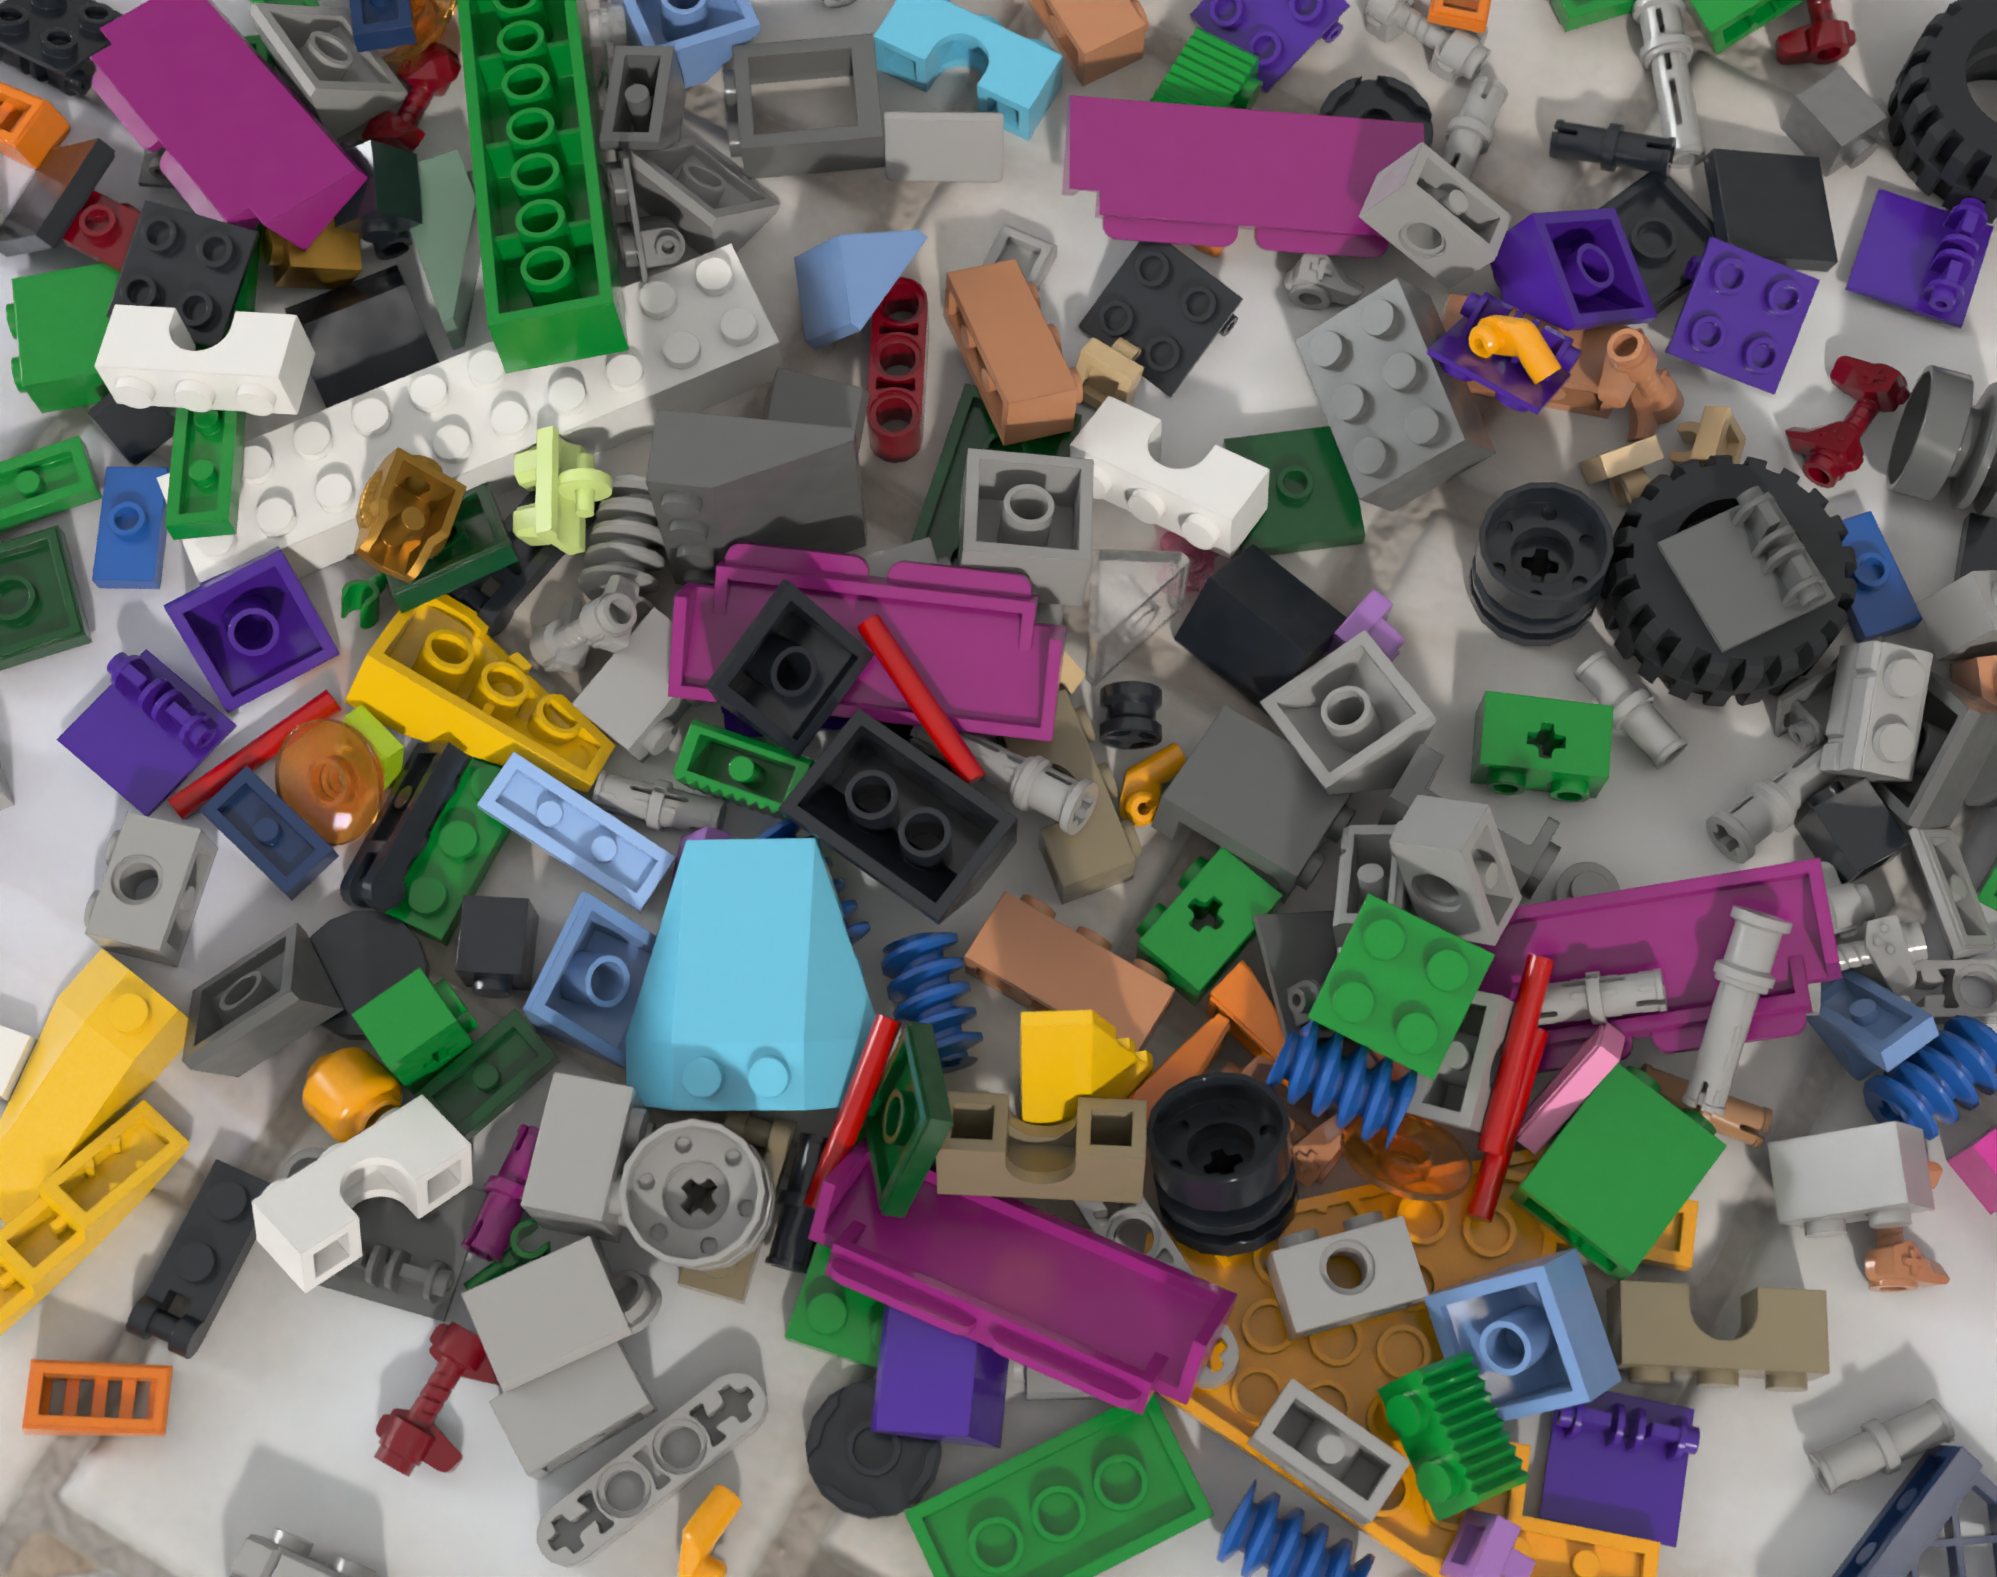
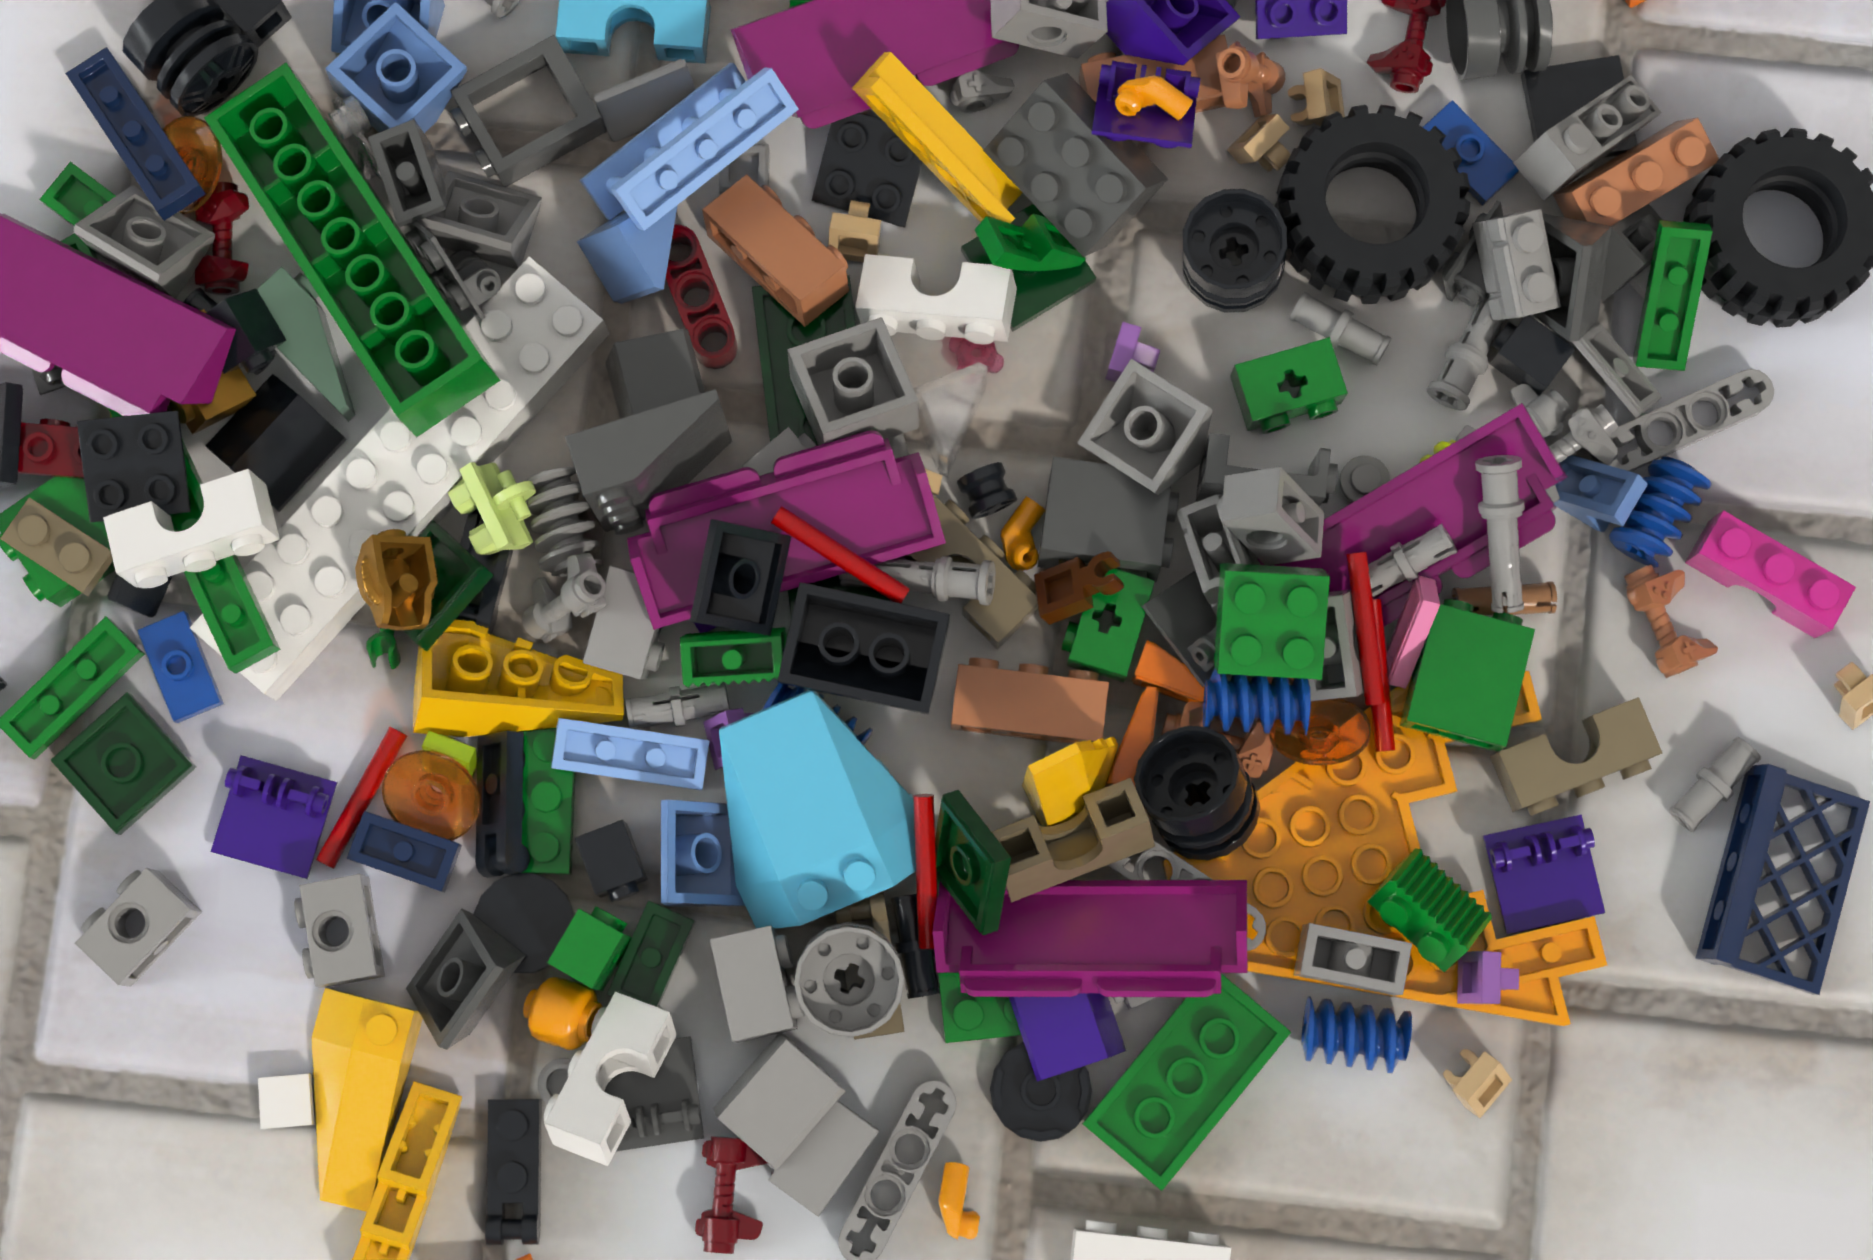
camera: 25 degrees left, 10 degrees up
(59, 331) = (58, 546): none -> dark tan plate
(252, 629) = (317, 708): dark purple slope -> none
(503, 1203) = (707, 1031): magenta pin -> none
(511, 1257) = (727, 1077): green hand -> none
(639, 1298) = (833, 1061): light grey plate -> none
(929, 996) = (938, 760): blue piece -> none
(967, 194) = (689, 145): none -> light blue fence
(1180, 854) = (1070, 586): none -> reddish brown plate
(1248, 307) = (937, 139): none -> yellow fence
(1258, 625) = (1051, 382): black slope -> none
(1305, 463) = (1029, 247): none -> green slope
(1315, 1304) = (1342, 825): light grey brick -> none
(1529, 1334) = (1453, 817): medium blue slope -> none
(1746, 570) = (1385, 202): dark grey hinge -> none
(1850, 1178) = (1625, 610): light grey brick -> none

